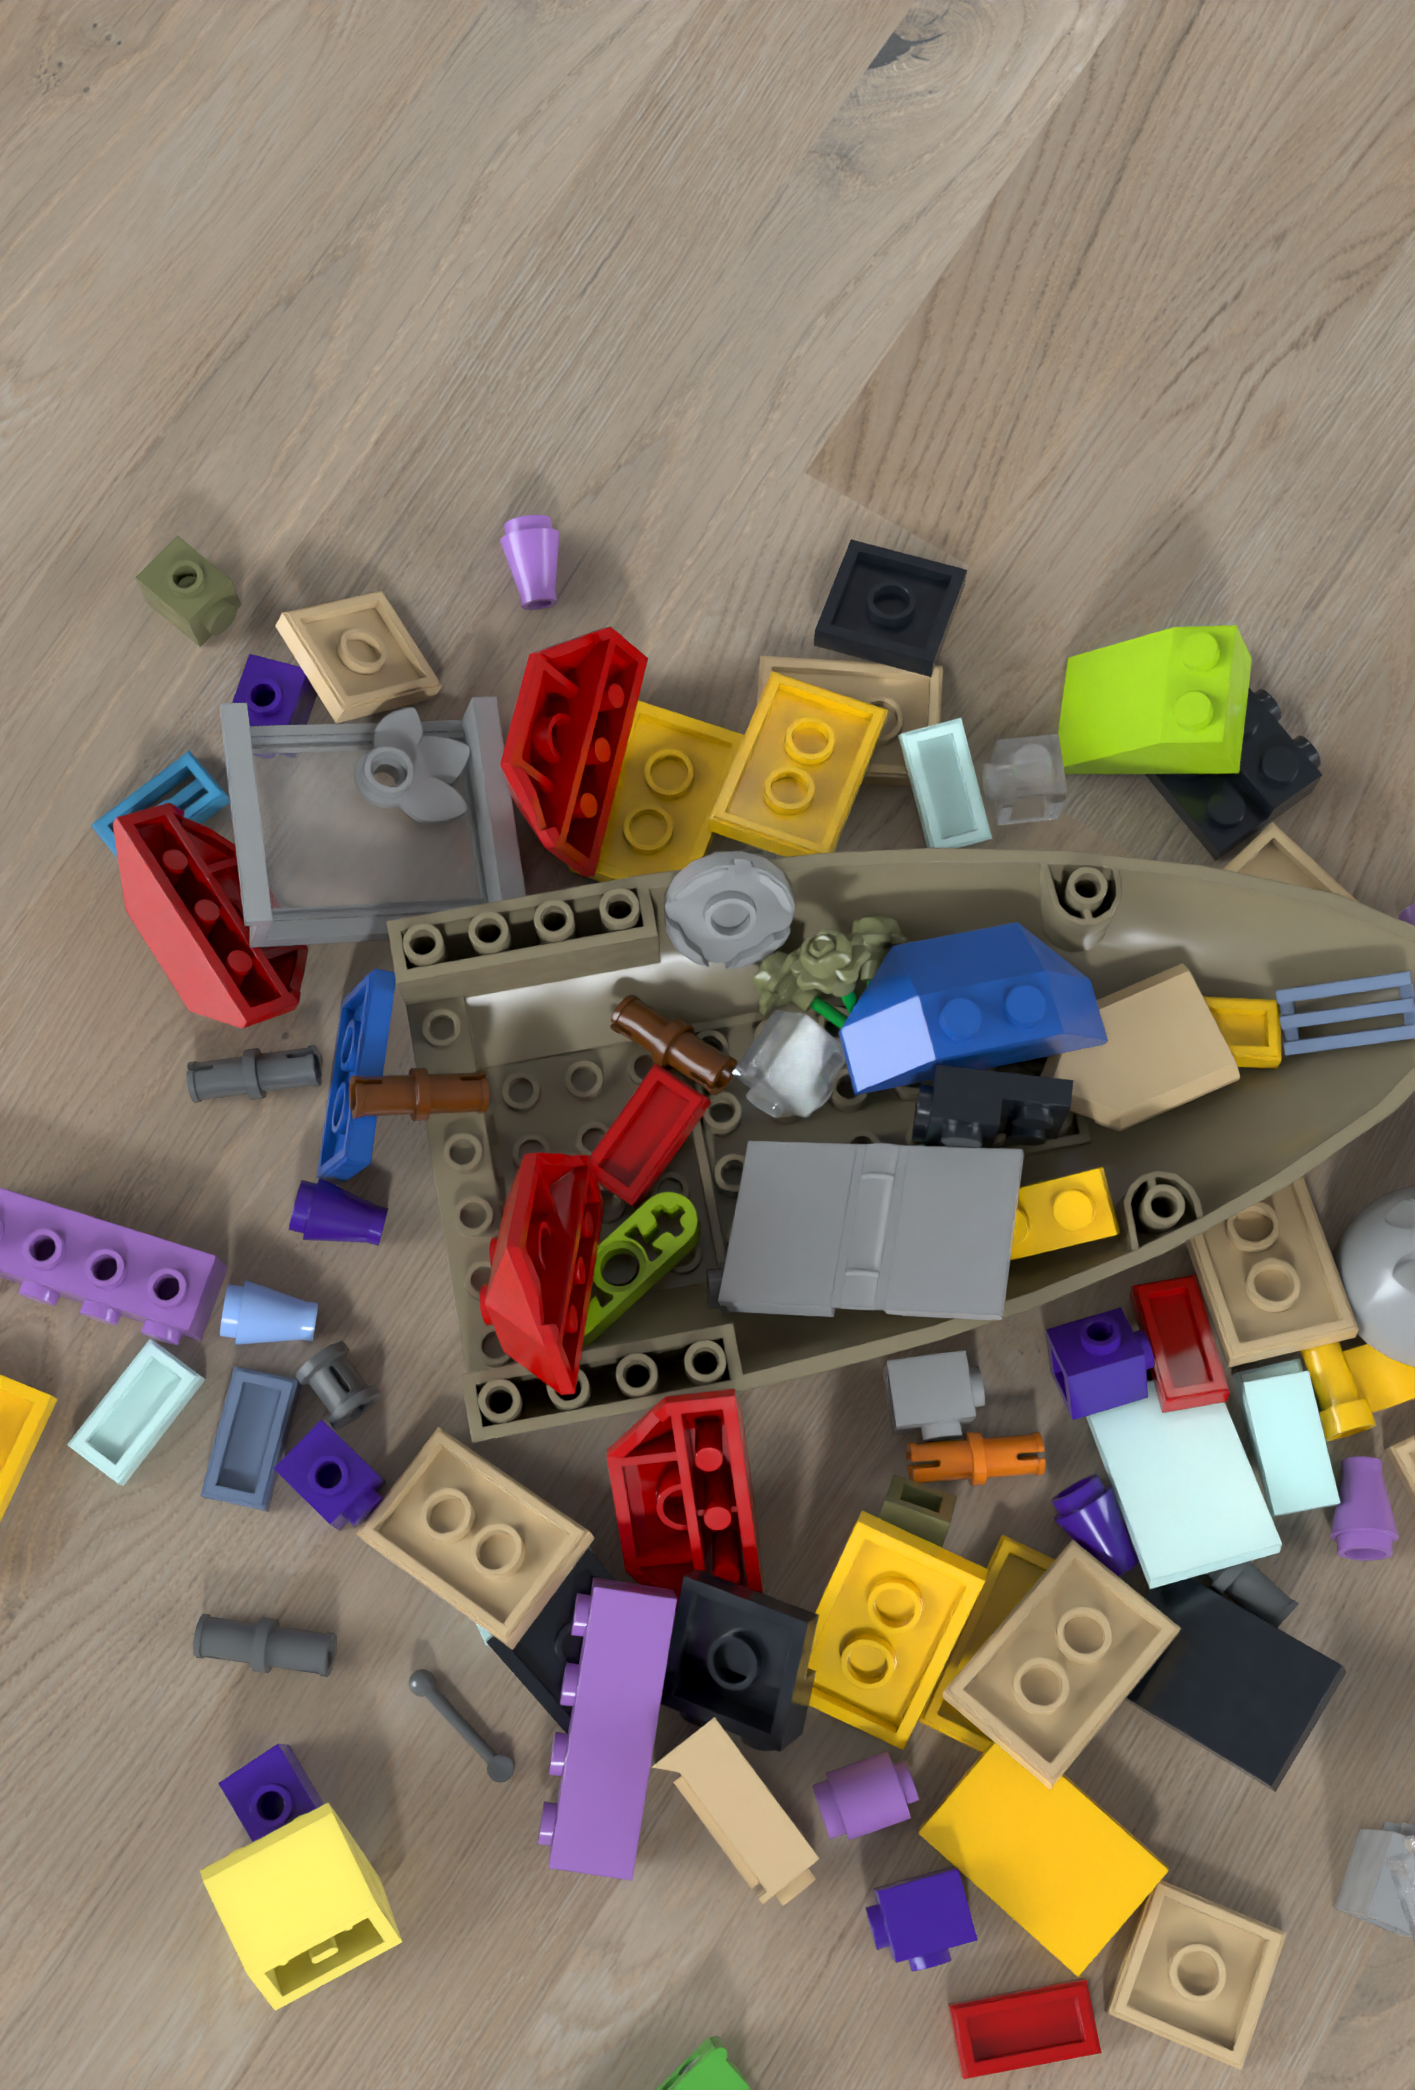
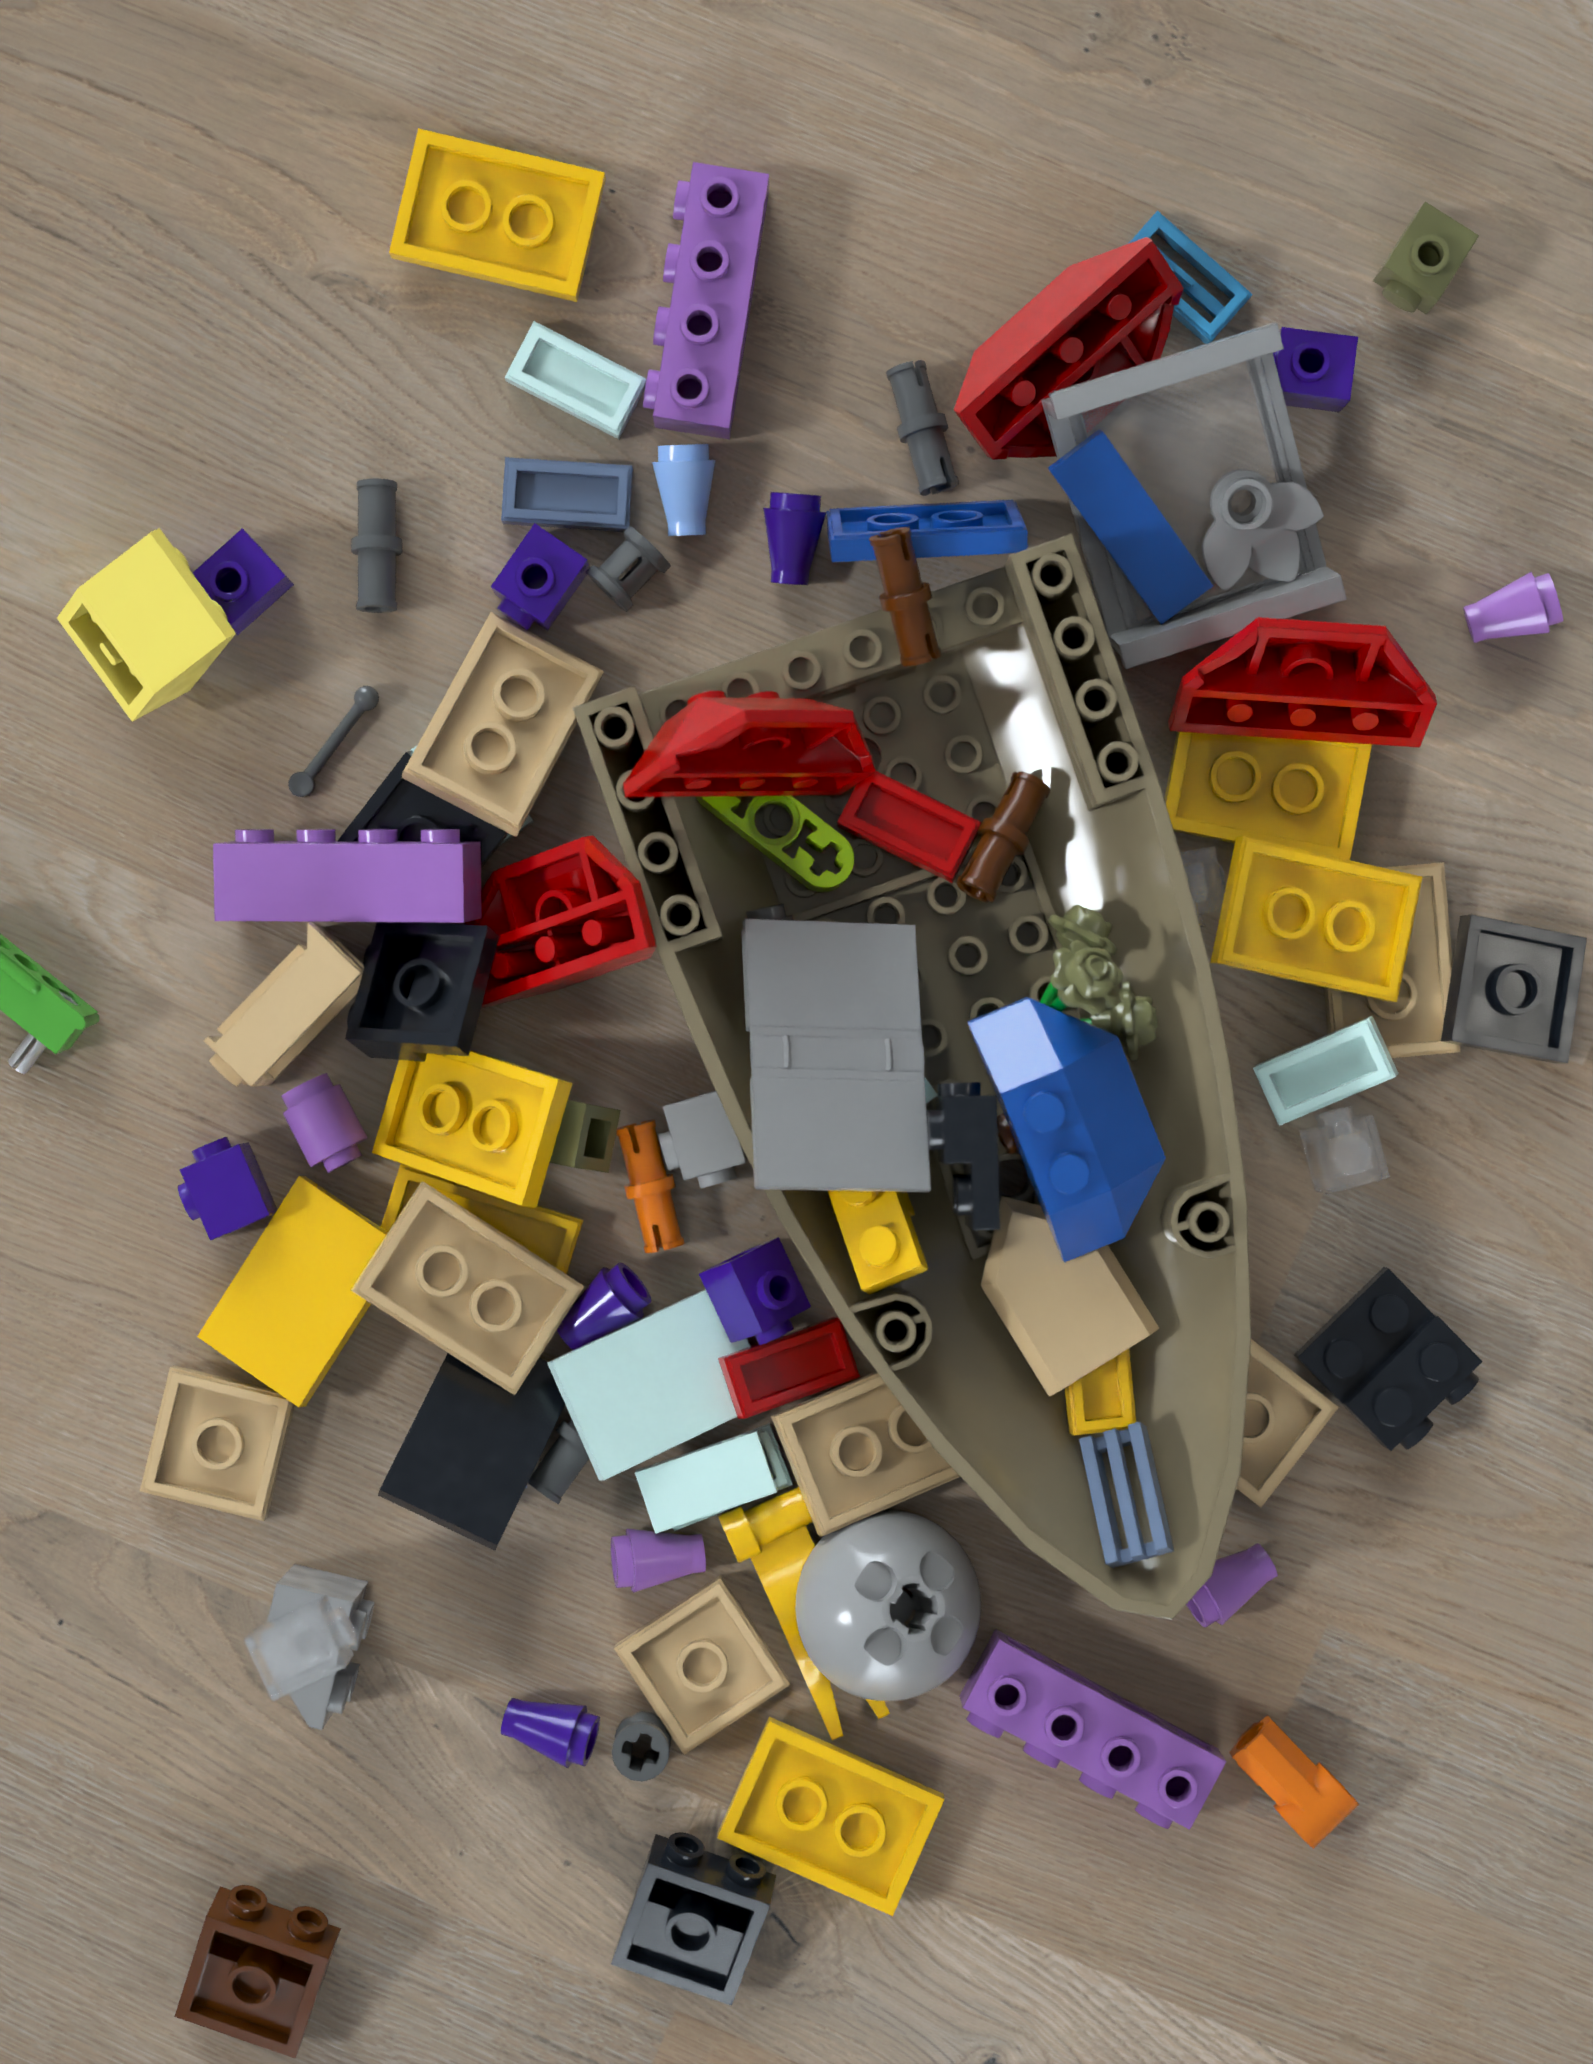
camera: 85 degrees right, 15 degrees up
(358, 656) = (1377, 448): tan tile -> none
(388, 883) = (1130, 526): none -> blue tile
(729, 909) = (1138, 870): light grey tile -> none
(790, 1065) = (992, 954): clear brick -> none
(1024, 2028) = (147, 1293): red tile -> none
(1157, 704) = (1439, 1274): lime slope -> none

